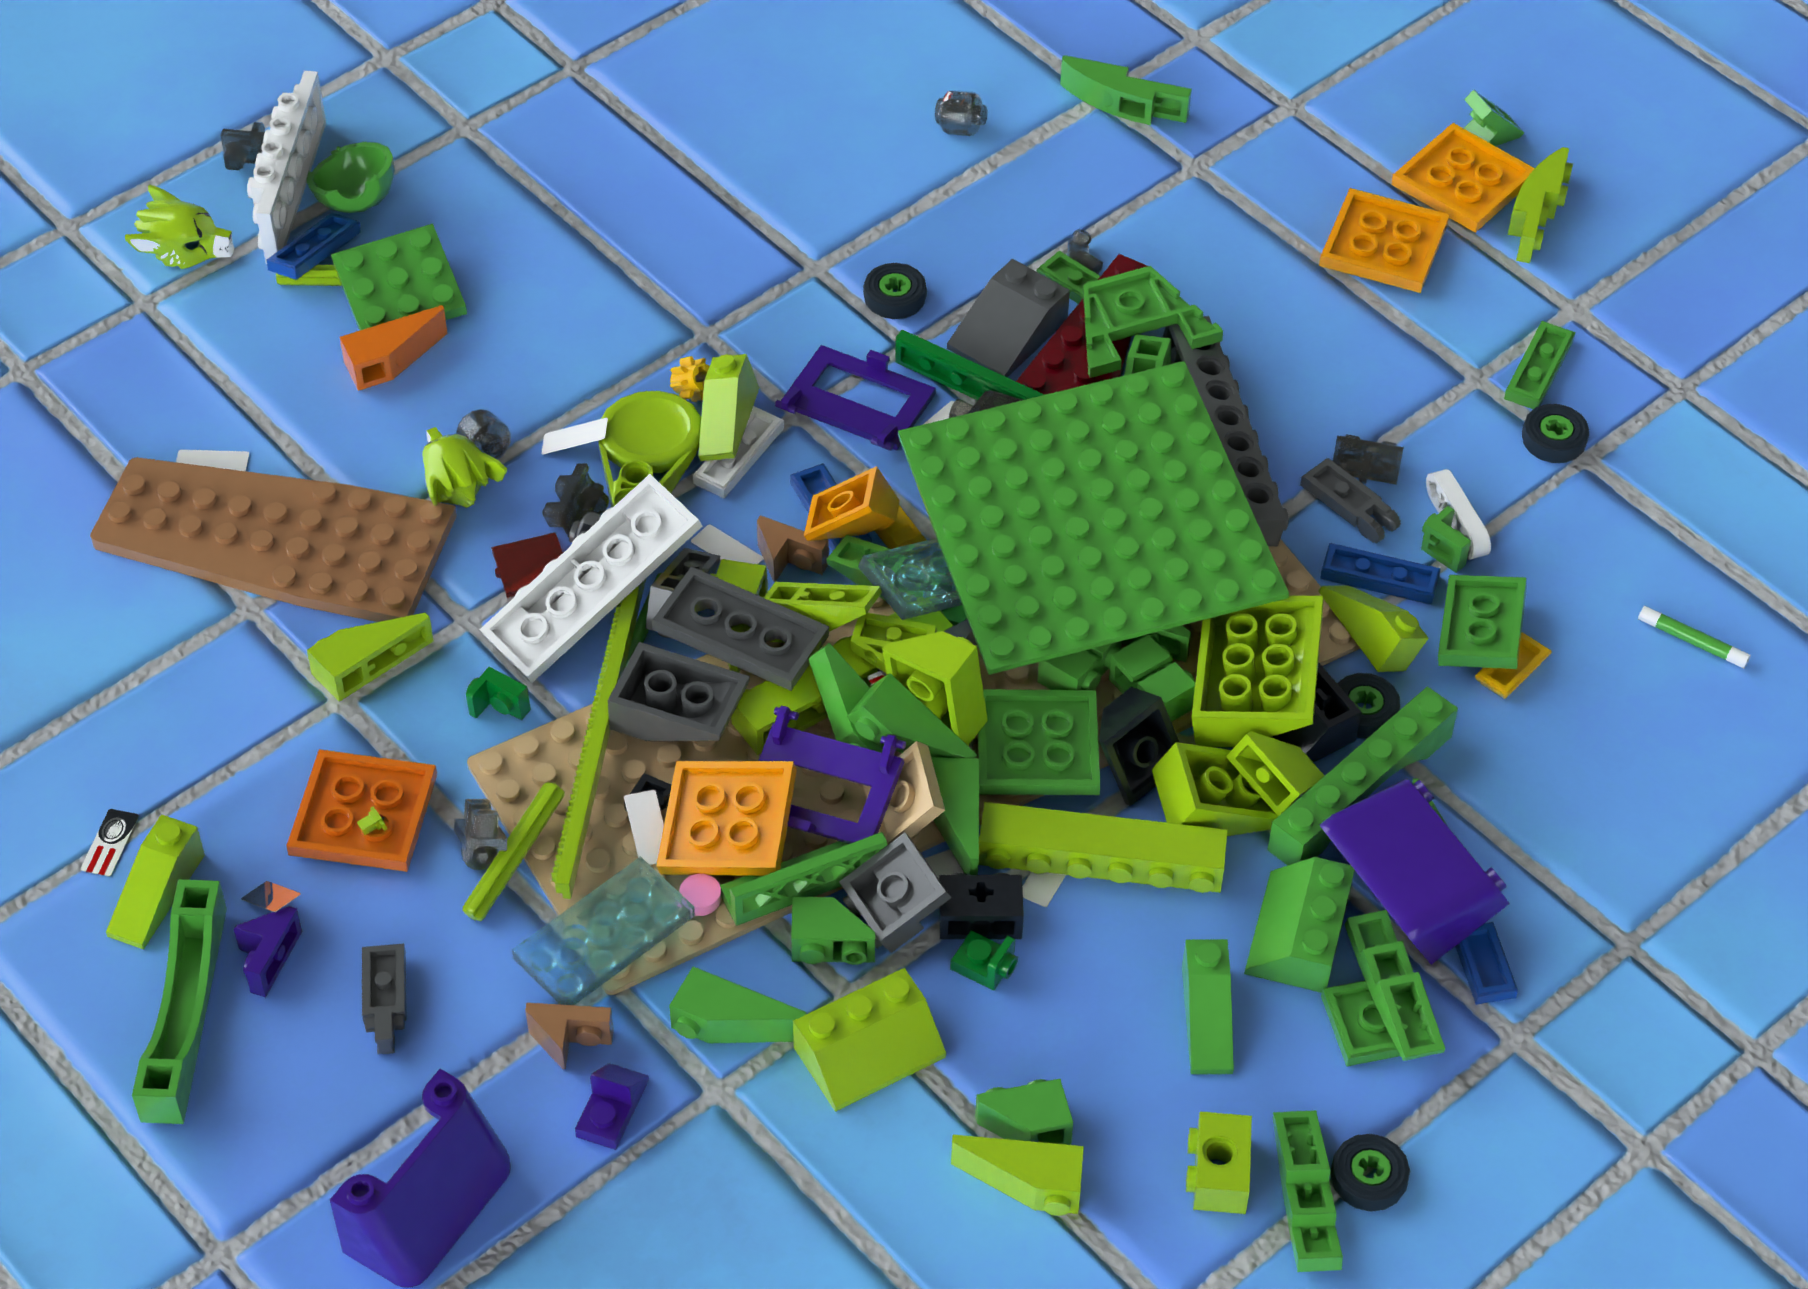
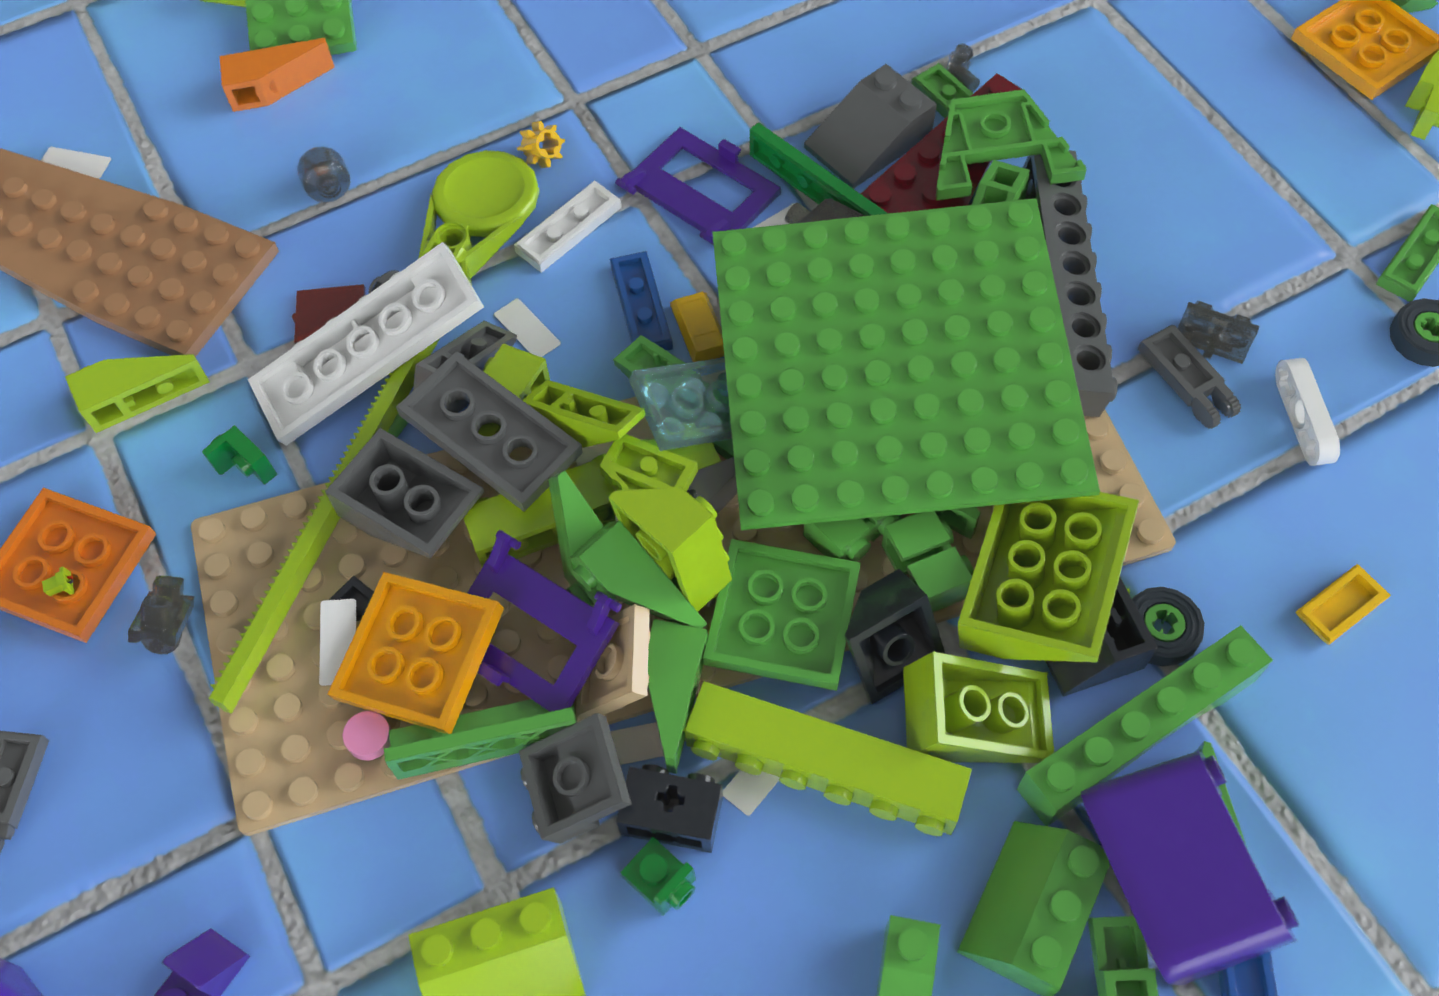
camera: 15 degrees right, 10 degrees up
(457, 468) = (279, 206): lime piece -> none
(518, 845) = (191, 644): lime axle -> none
(559, 1024) = (164, 878): medium nougat slope -> none
(574, 436) = (412, 186): white sticker -> none
(577, 497) = (393, 250): clear smoke hips -> none
(603, 933) = (244, 768): clear light blue plate -> none
(726, 406) = (564, 176): lime slope -> none
(729, 1013) = (348, 893): bright green slope -> none
(786, 544) = (582, 335): medium nougat slope -> none
(829, 933) = (489, 808): bright green slope -> none
(852, 507) = (654, 307): light orange slope -> none
(895, 305) = (766, 96): black bush -> none
(1274, 769) = (1044, 702): lime slope -> none
(1380, 573) = (1208, 466): blue tile -> none
(1381, 630) = (1196, 536): lime slope -> none
(1384, 240) = (1275, 95): light orange plate -> none
(1444, 542) = (1287, 443): bright green bracket -> none
(1482, 621) = (1317, 549): bright green plate -> none

